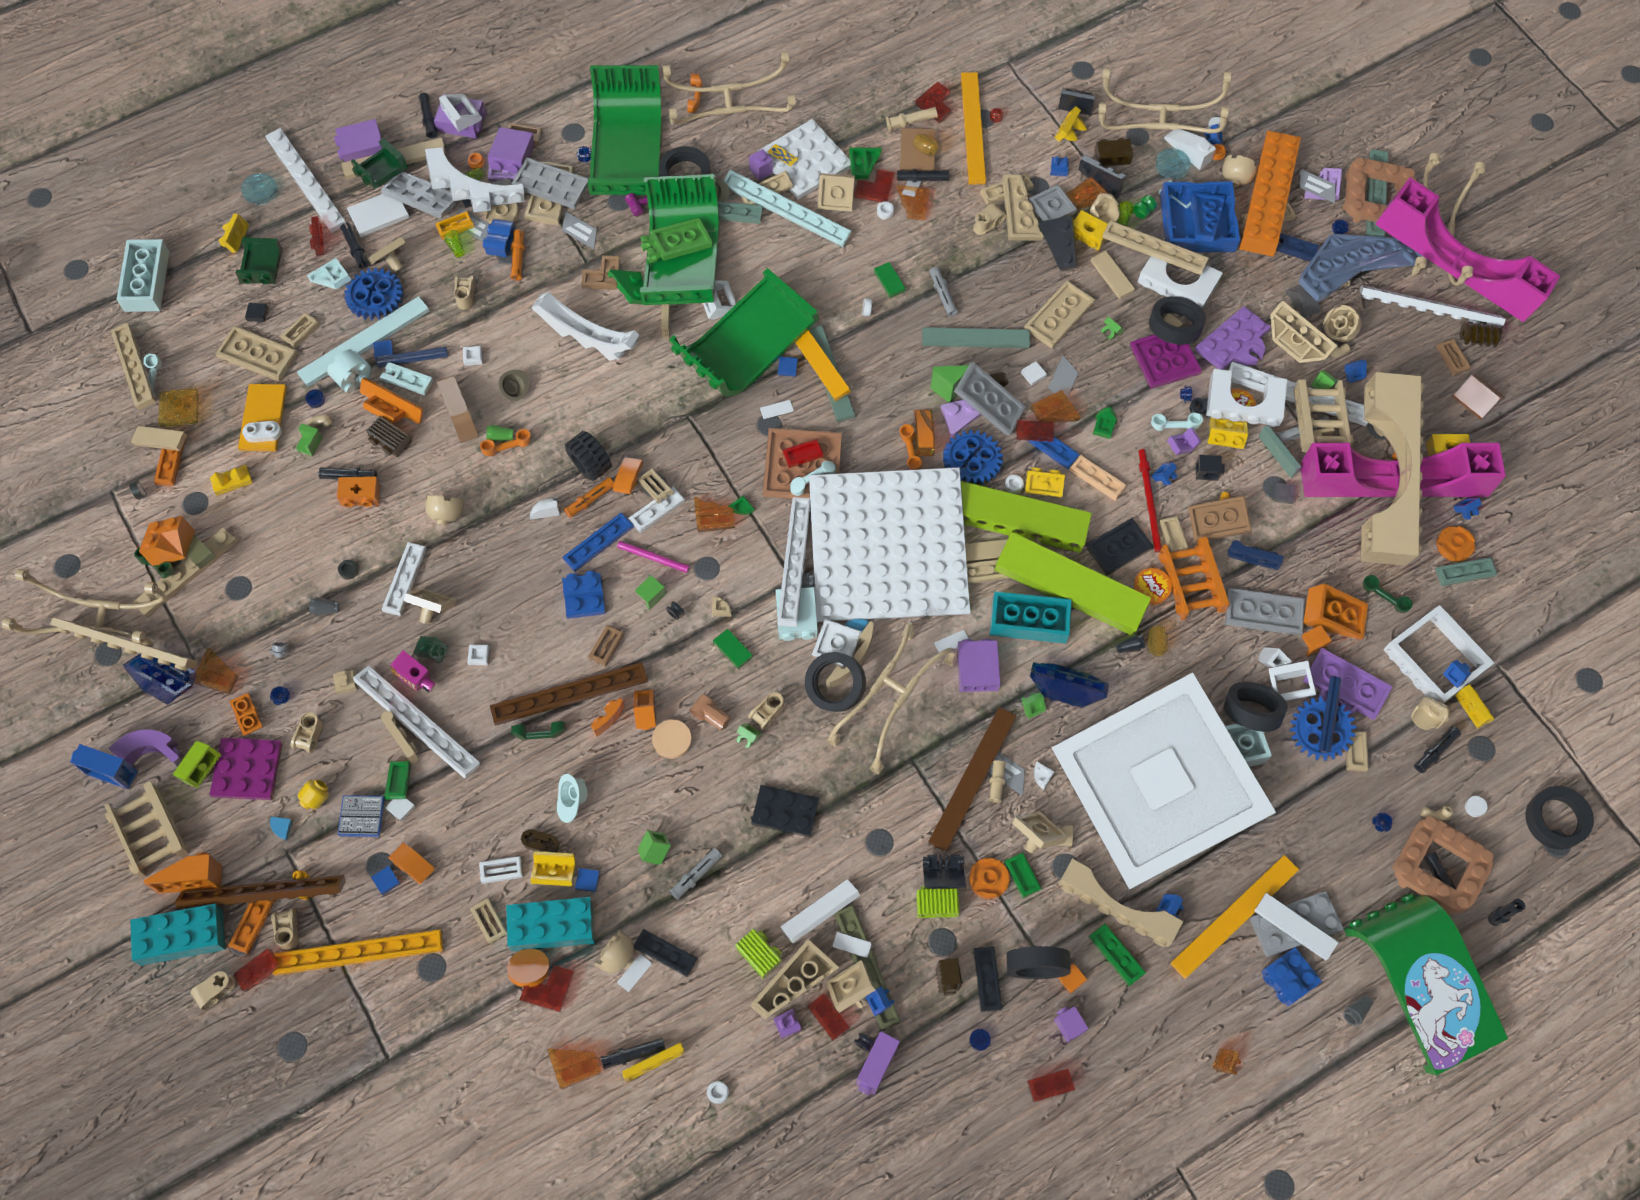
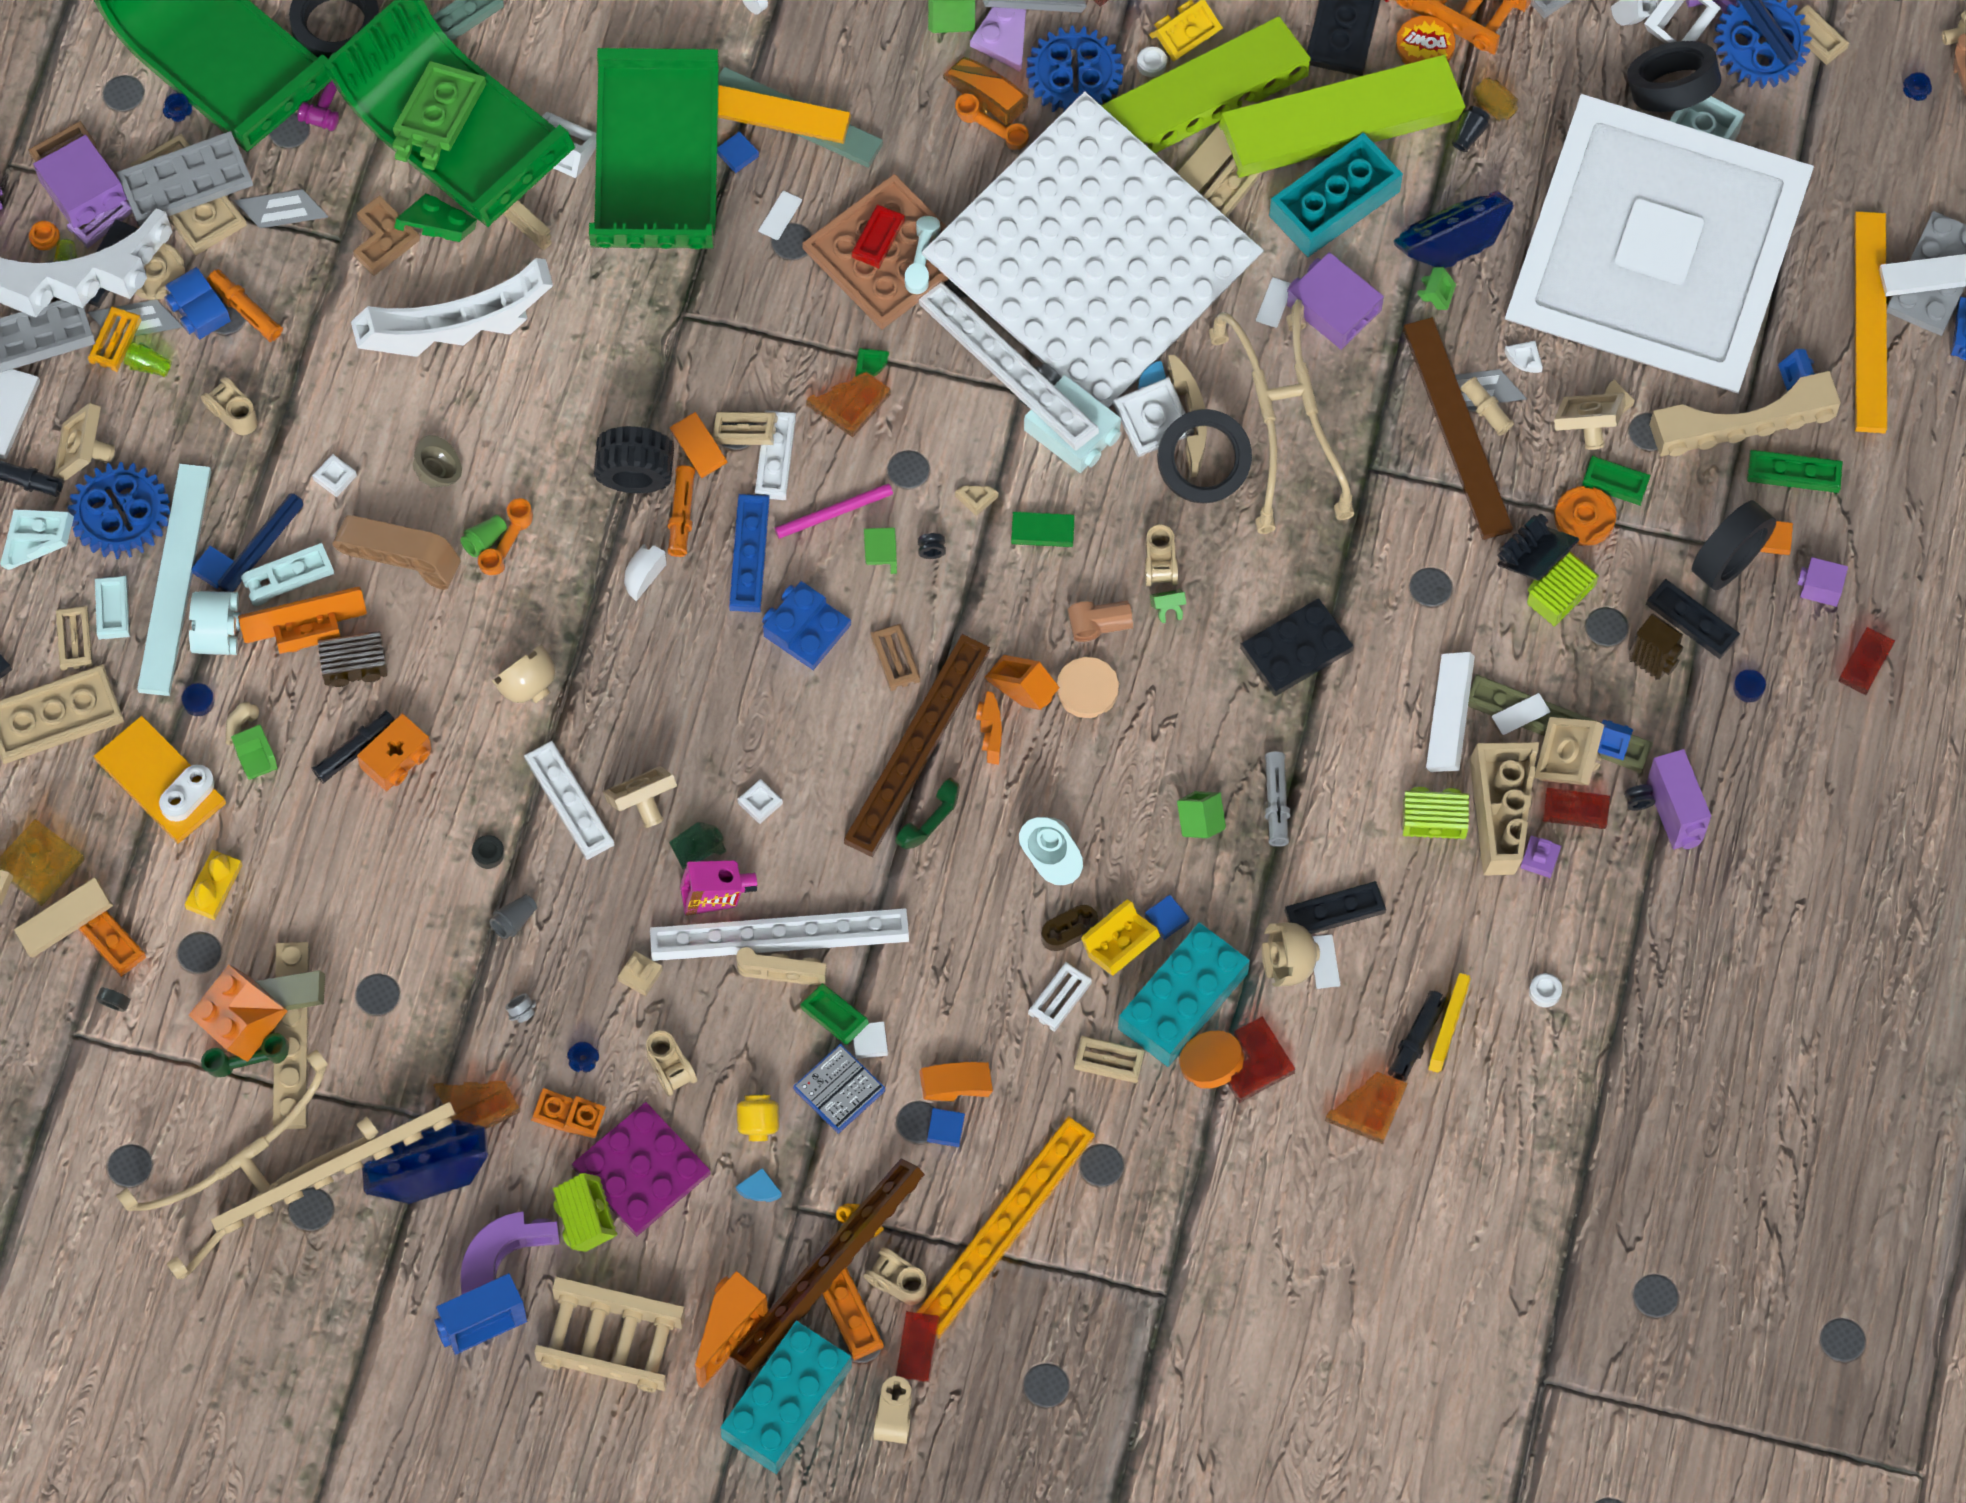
camera: 45 degrees left, 0 degrees up
(328, 331) = (112, 607): none -> light aqua tile

